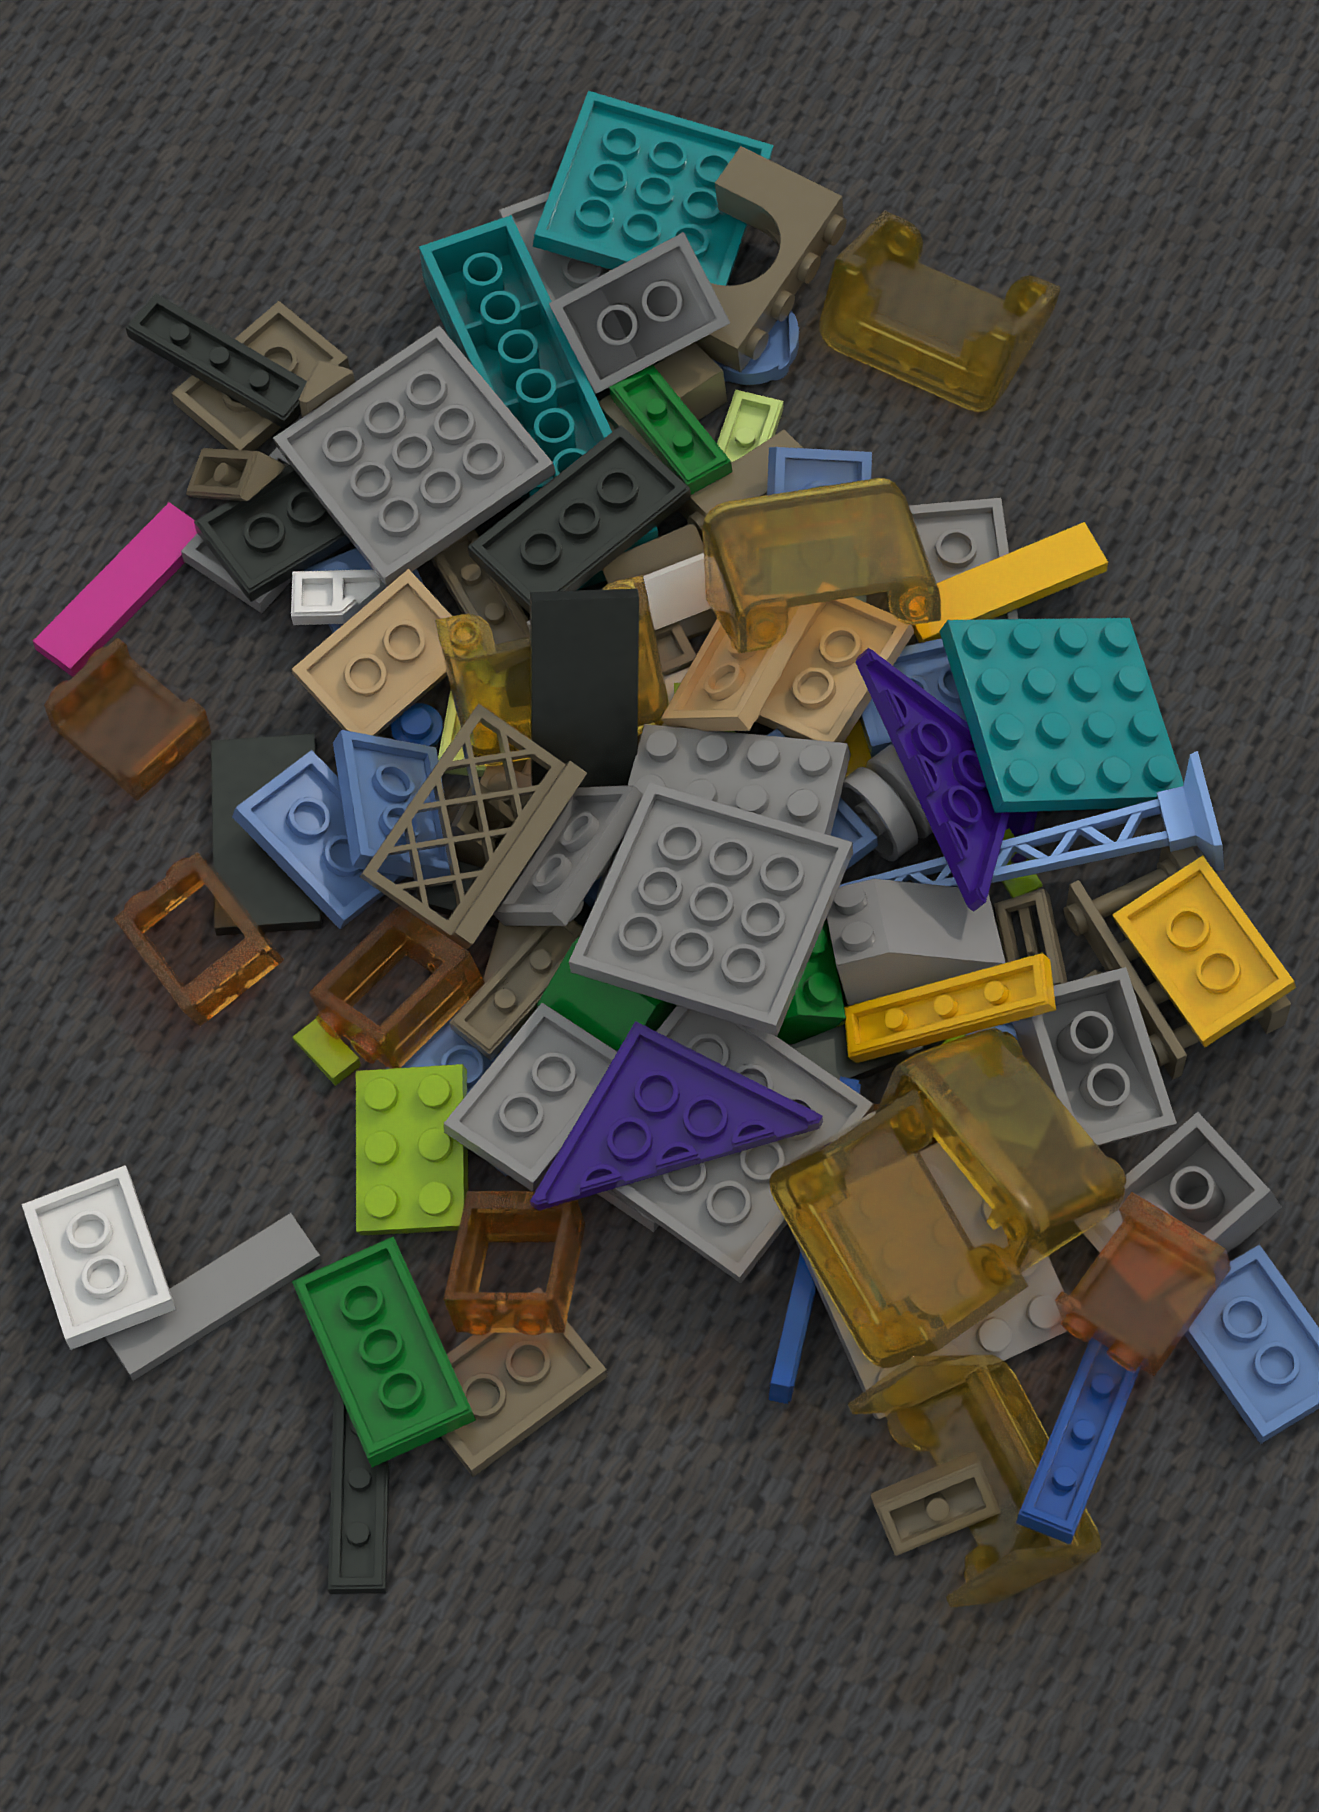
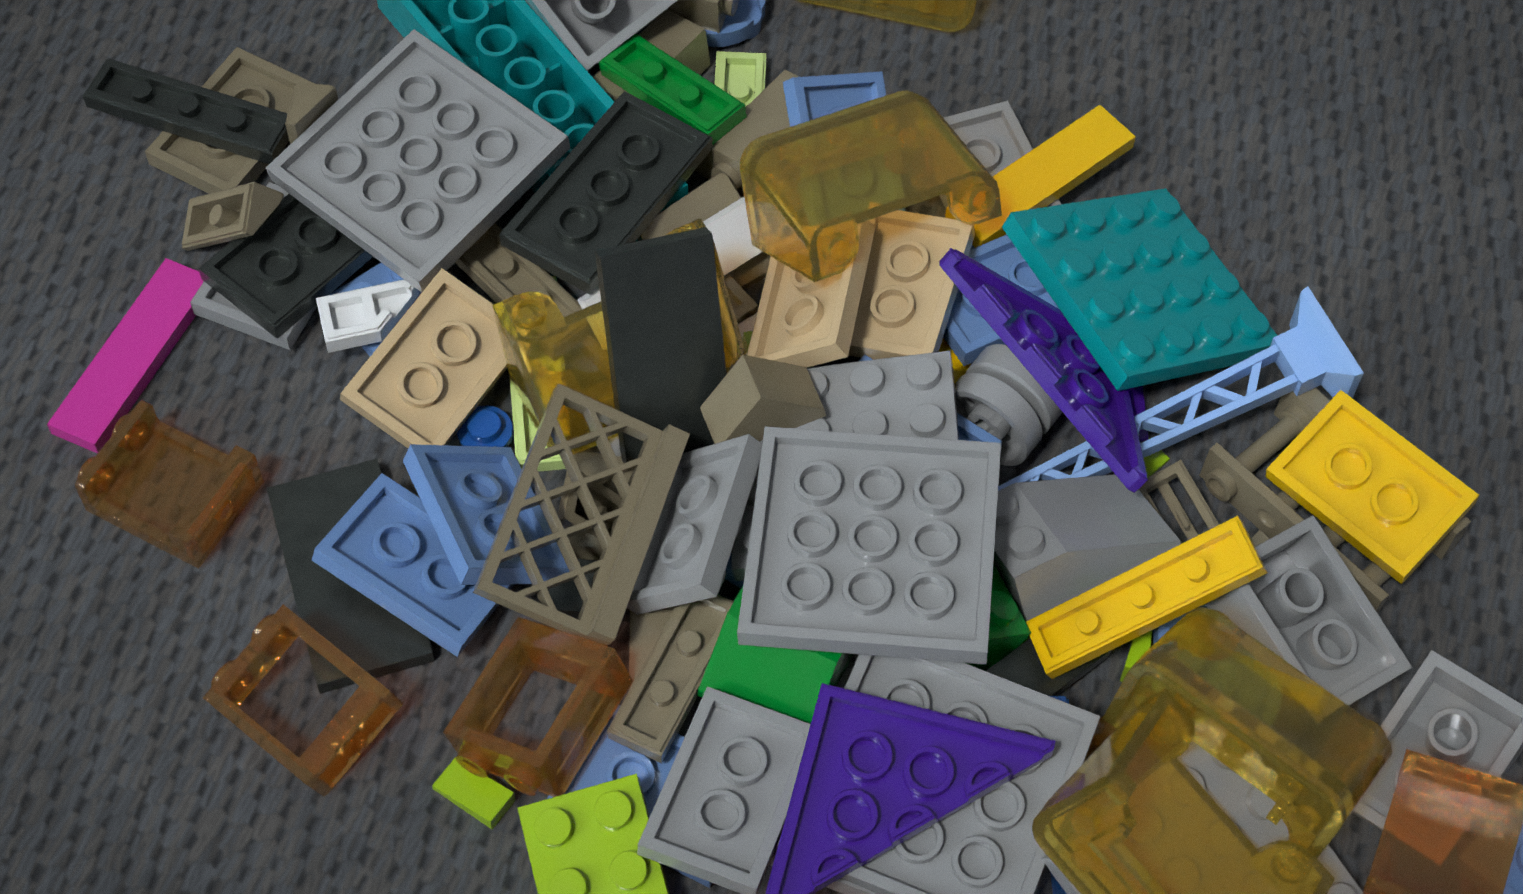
camera: 20 degrees left, 5 degrees down
(662, 753) = (761, 395): none -> dark tan slope

